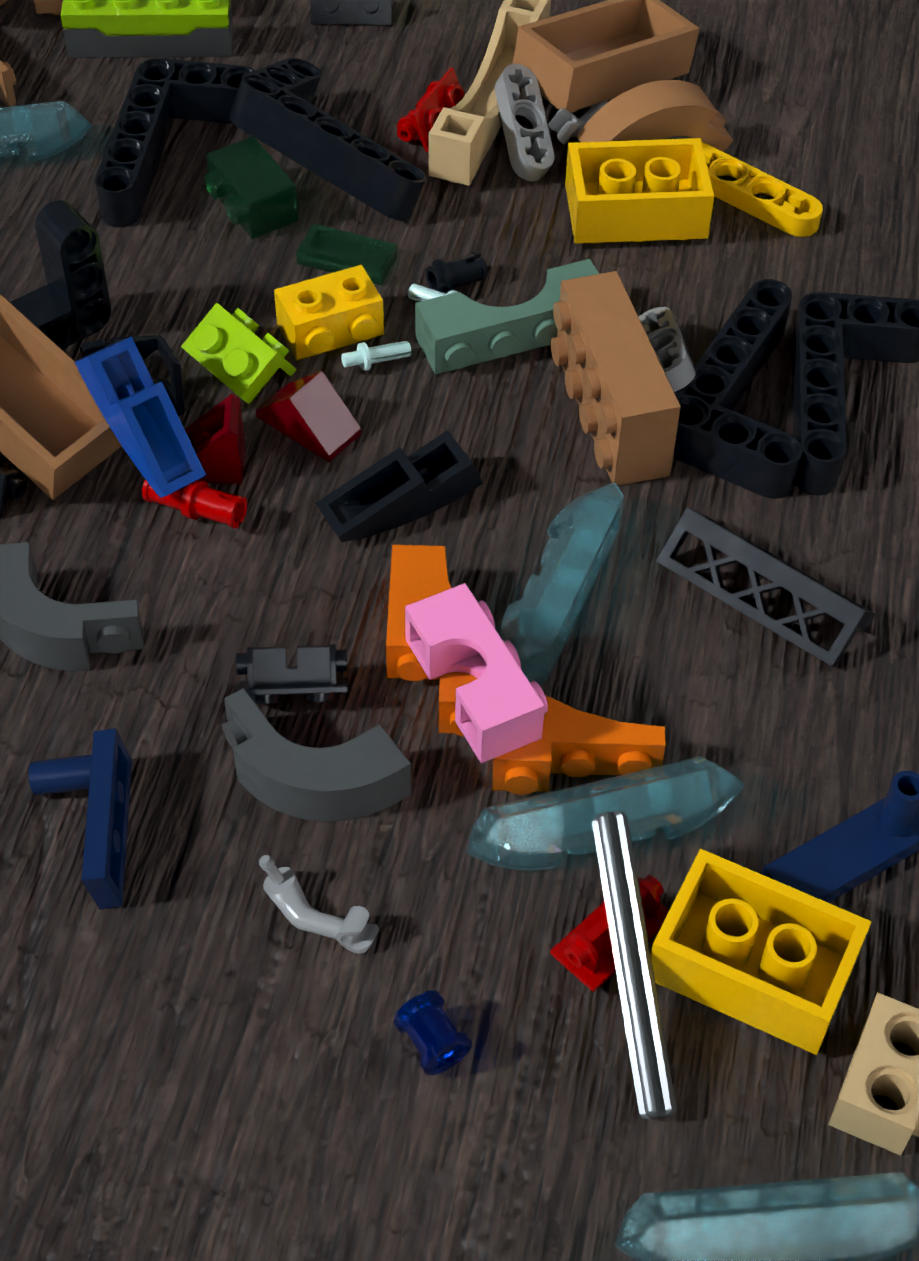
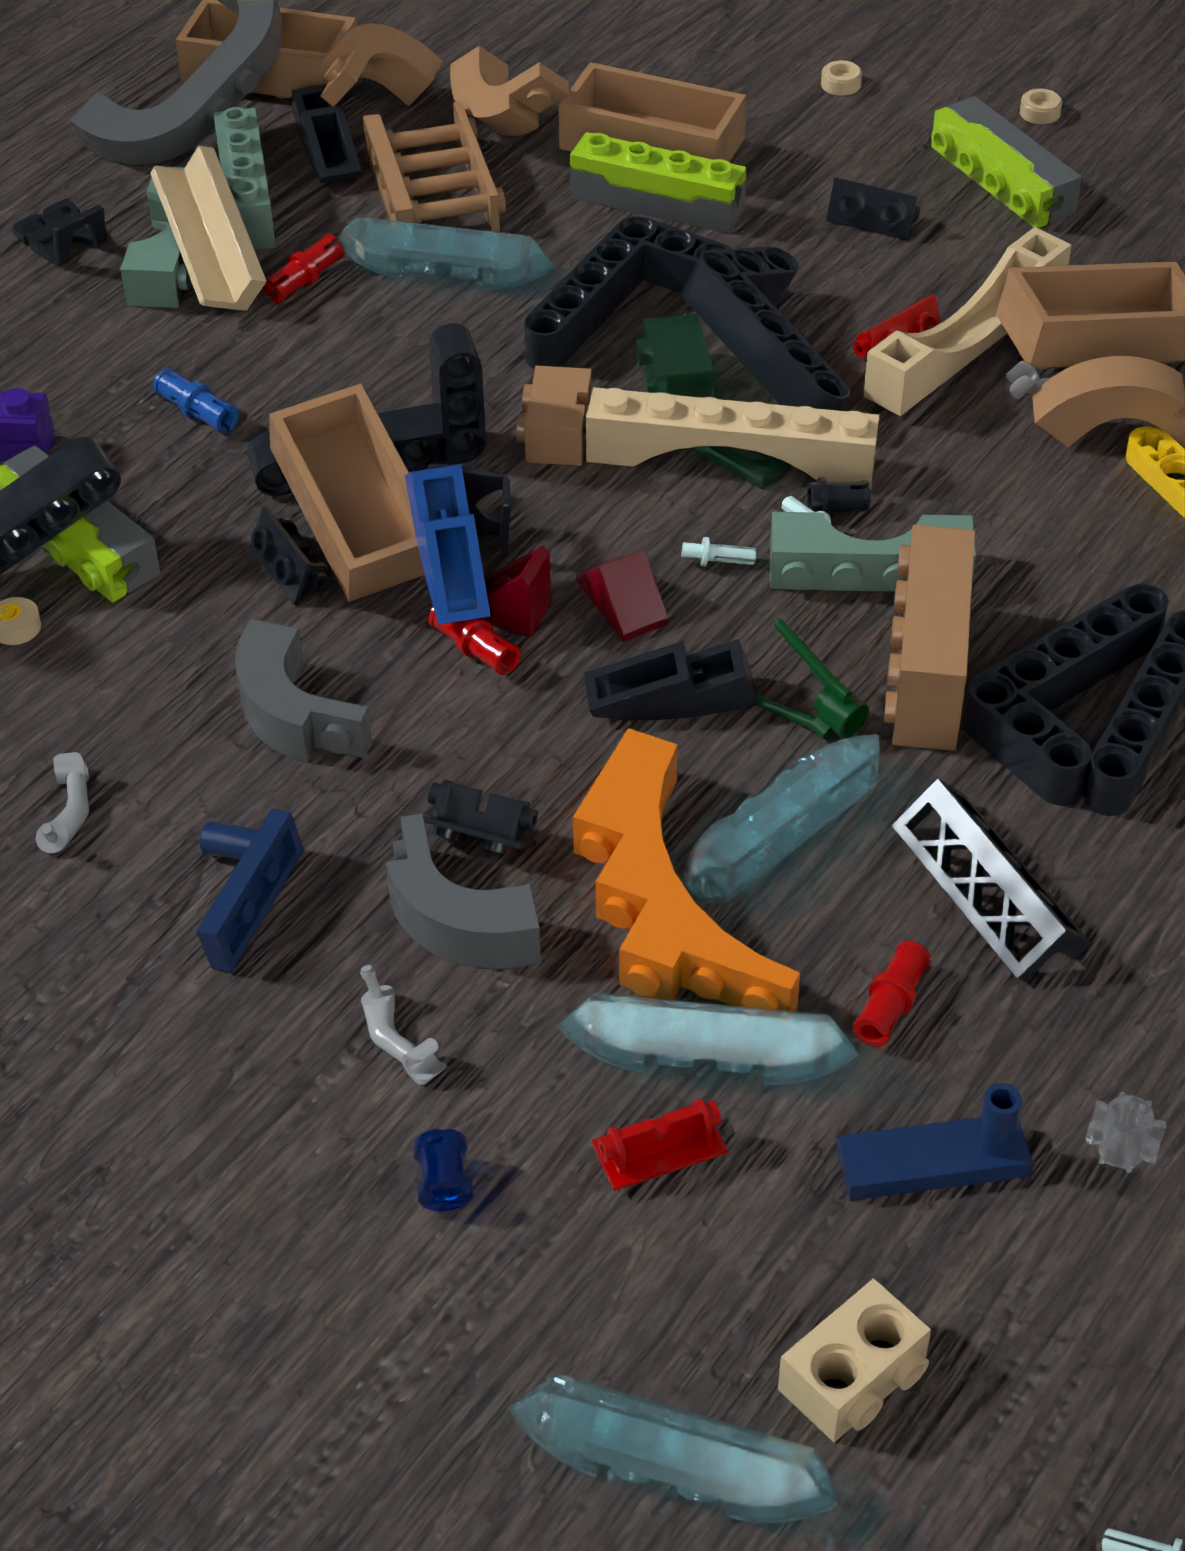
camera: 25 degrees right, 5 degrees down
(165, 265) = (555, 415): none -> medium nougat brick
(235, 354) = (583, 513): lime bracket -> none
(250, 254) = (636, 425): none -> tan arch
(329, 312) = (690, 500): yellow brick -> none
(459, 635) = (638, 896): bright pink arch -> none
(519, 139) = (970, 379): light grey beam -> none
(557, 464) = (835, 705): none -> dark green plant
(633, 966) = (651, 1172): axle -> none
(638, 190) = (1063, 463): yellow brick -> none
(668, 346) = (1002, 625): light grey beam -> none
(740, 717) = (892, 994): none -> red pin
(758, 950) = (782, 1203): yellow brick -> none

